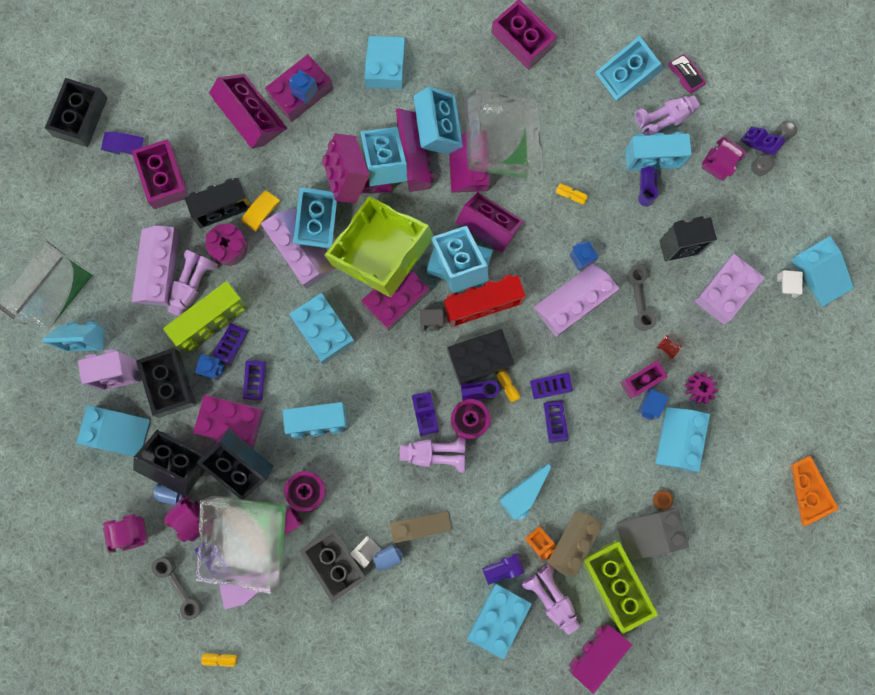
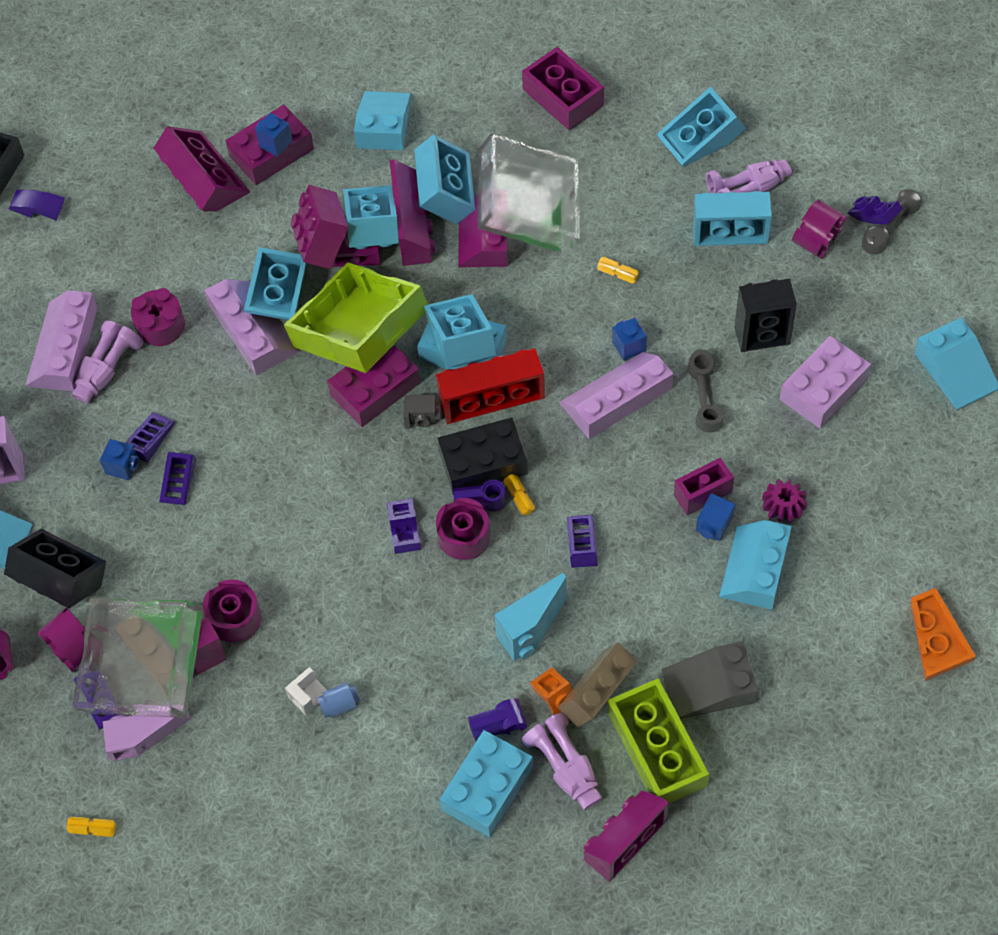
camera: 10 degrees right, 20 degrees down
(160, 174) = (81, 236): magenta brick -> none
(166, 383) = (60, 475): black brick -> none
(166, 495) = (43, 609): medium blue brick -> none
(190, 607) = (32, 705): dark grey piece -> none
(205, 317) = (121, 397): lime brick -> none
(218, 202) = (153, 266): black brick -> none
(219, 415) = (137, 525): magenta brick -> none
(235, 464) = (140, 564): black brick -> none
(260, 210) = (203, 278): yellow slope -> none
(315, 420) = (254, 521): medium azure brick -> none
(322, 328) = (273, 417): medium azure brick -> none
(332, 565) = (259, 703): dark grey slope -> none
(420, 526) = (383, 662): dark tan slope -> none
(422, 454) = (397, 574): lavender piece -> none
(489, 222) = (506, 299): magenta slope -> none
(567, 381) = (586, 485): dark purple slope -> none
(648, 185) = (720, 262): dark purple piece -> none
(662, 500) = (726, 636): dark orange tile -> none
(669, 347) = (741, 450): clear red bush -> none
(689, 75) = (778, 136): slope -> none
(791, 282) = (910, 374): white panel -> none

